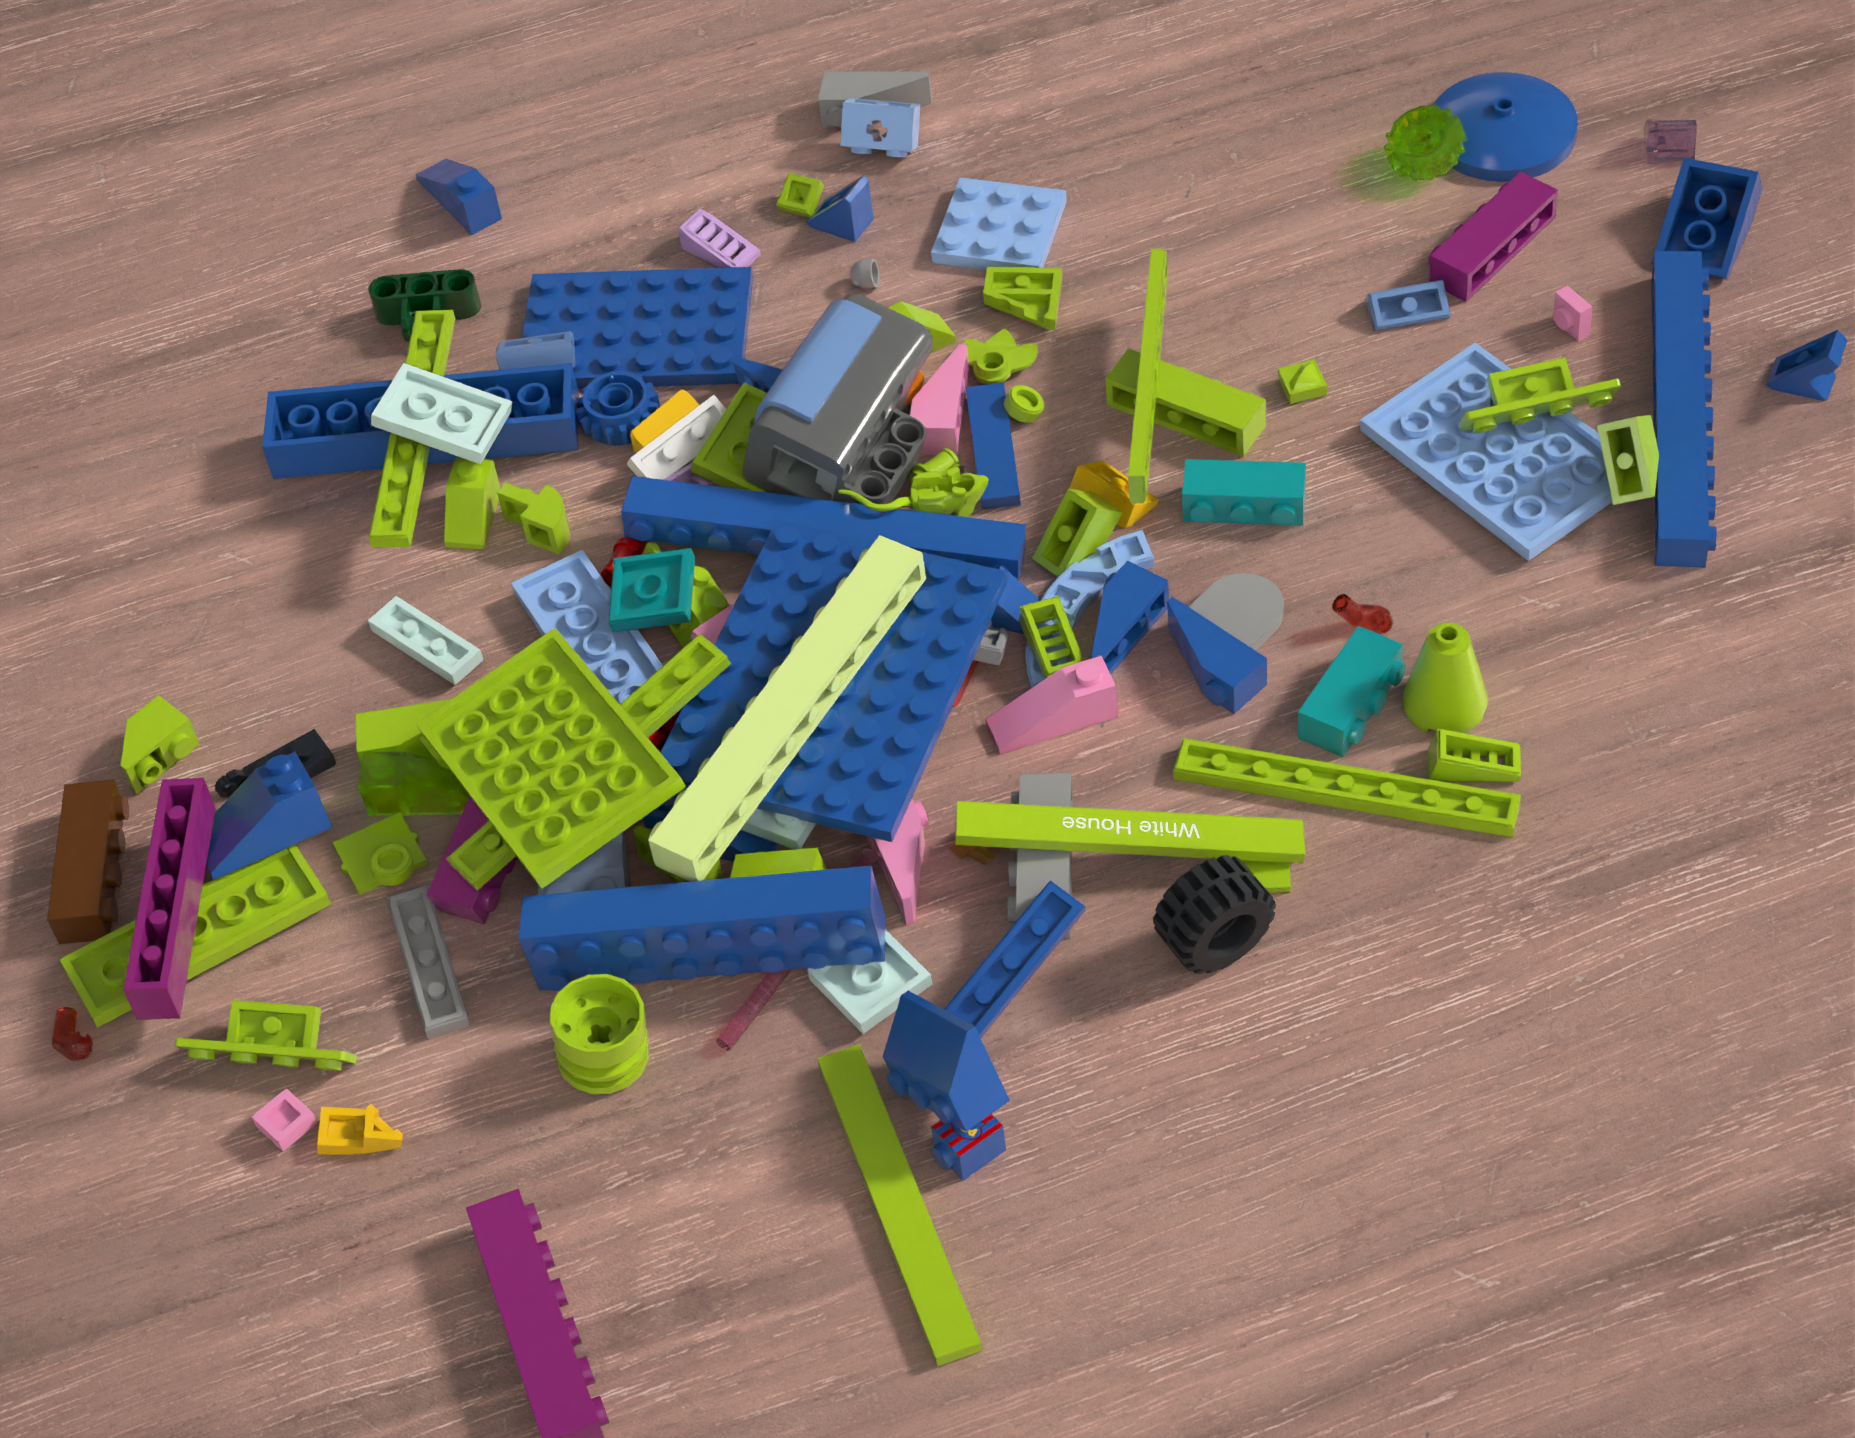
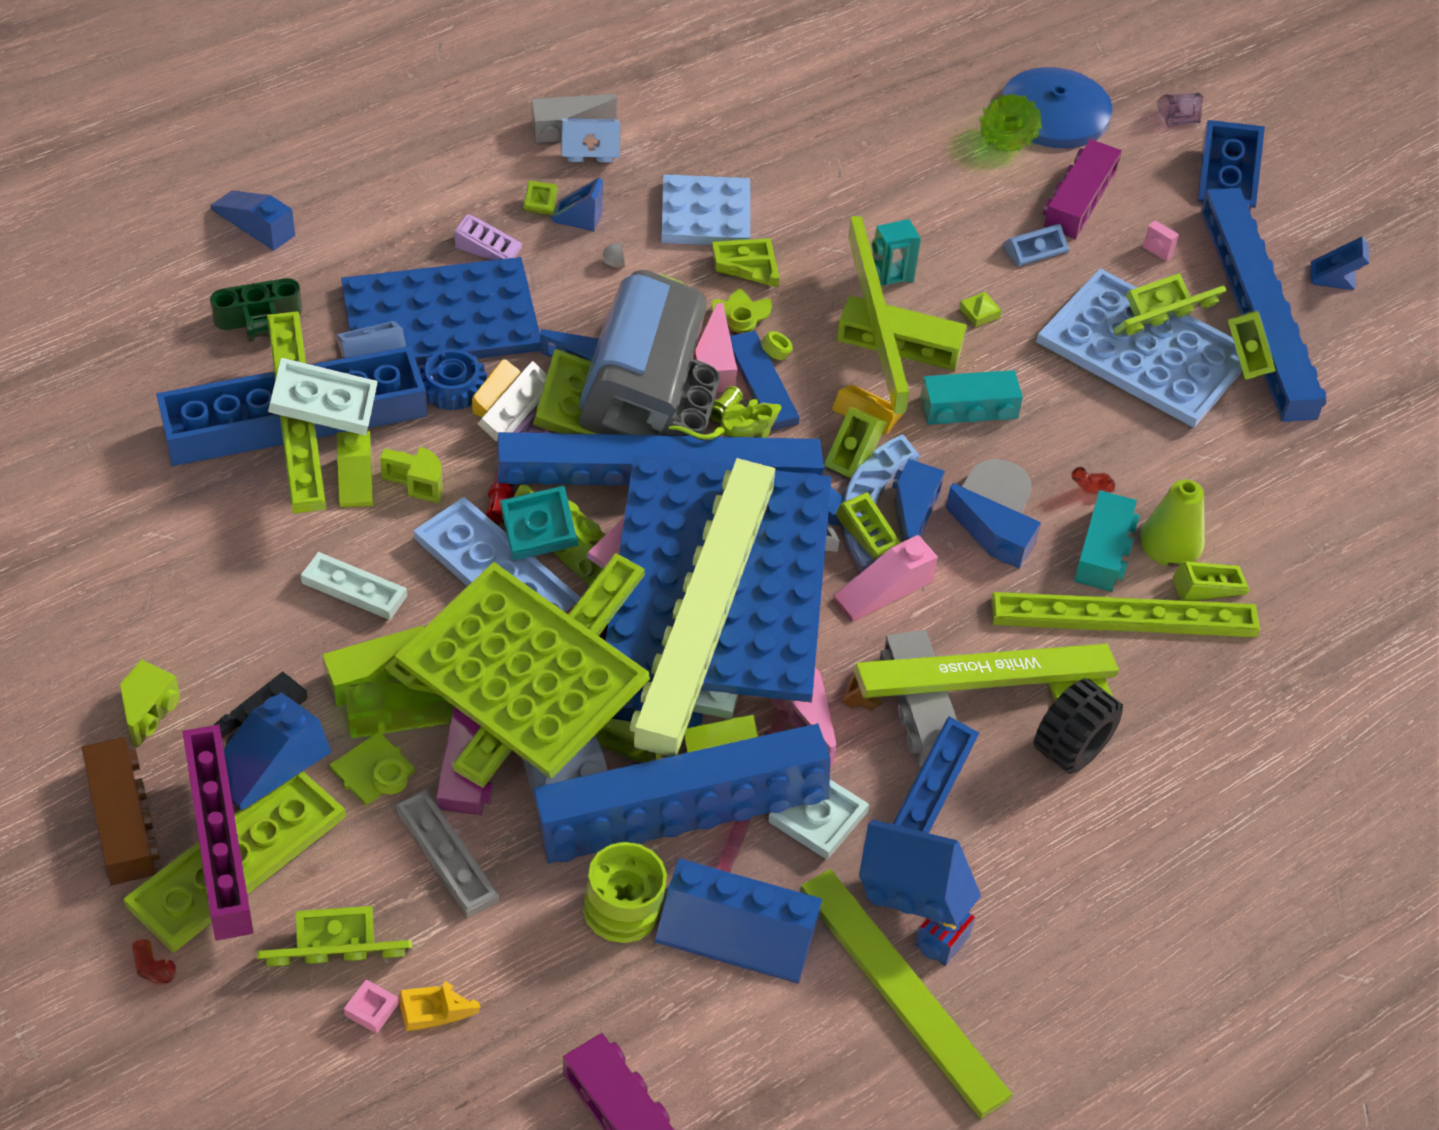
camera: 25 degrees left, 0 degrees up
(728, 1088) = (738, 920): none -> blue slope
(1205, 299) = (896, 251): none -> teal window

